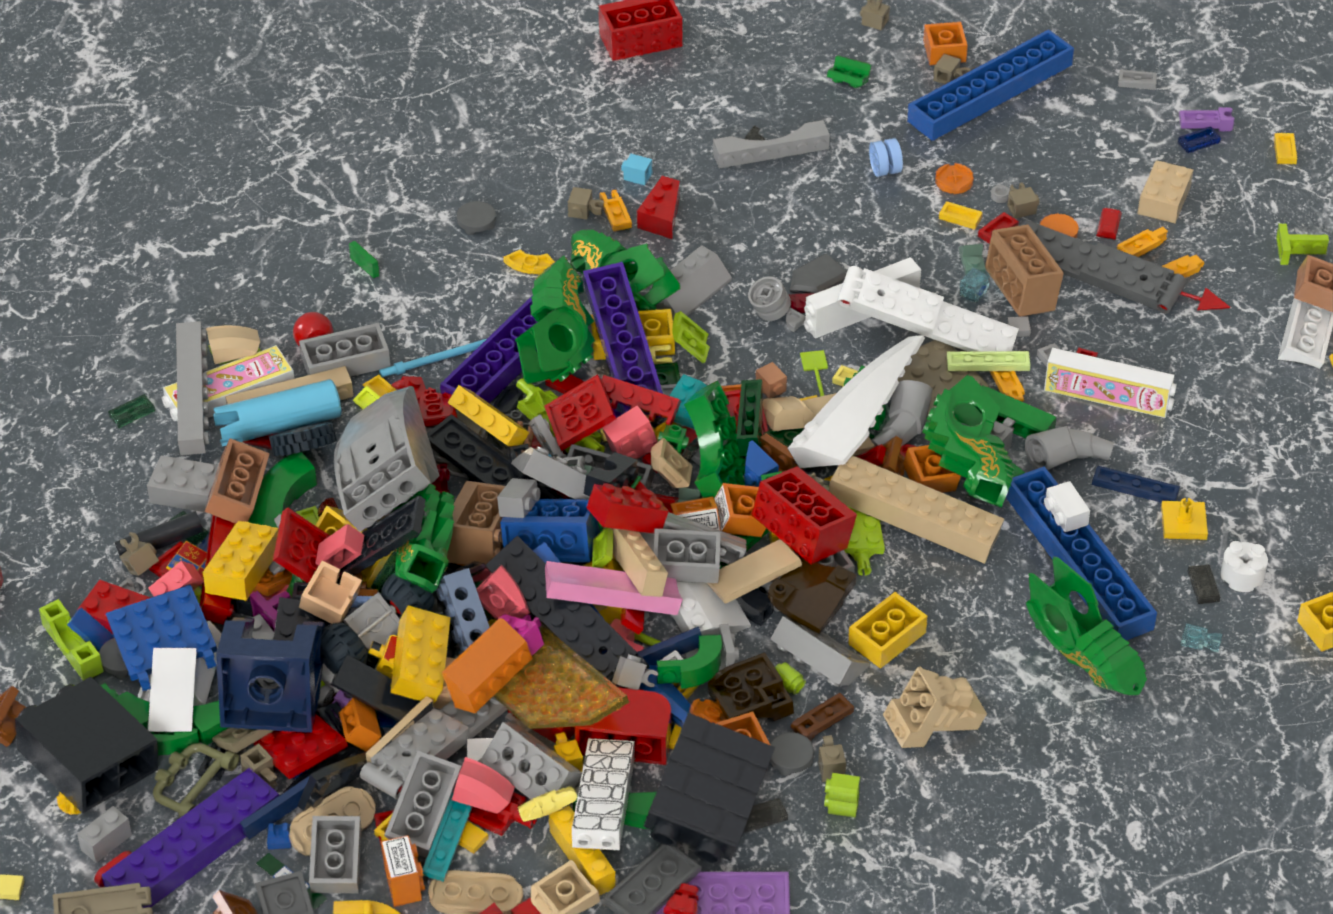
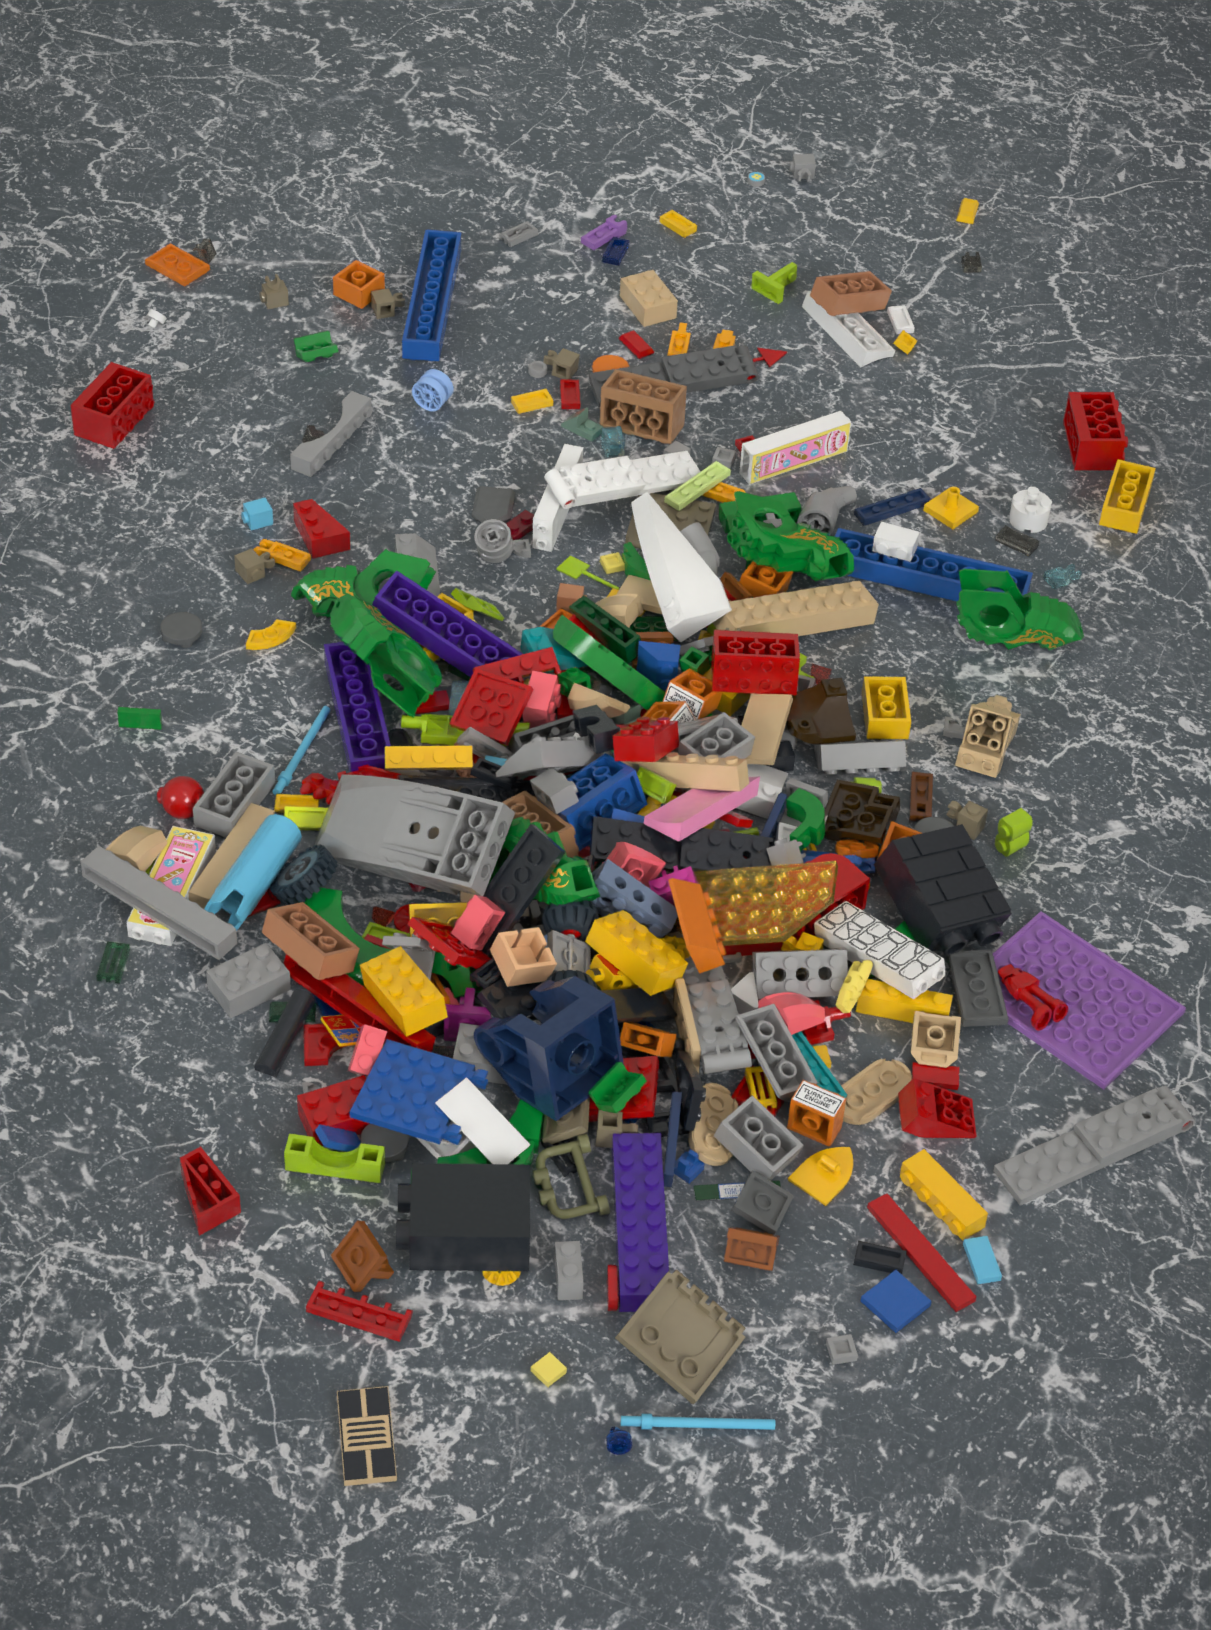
camera: 50 degrees left, 0 degrees up
(138, 556) = (295, 1058): dark tan brick -> none
(281, 734) = (616, 1088): none -> green bracket
(882, 571) = (820, 673): none -> clear red tile
(954, 178) = (491, 378): orange tile -> none

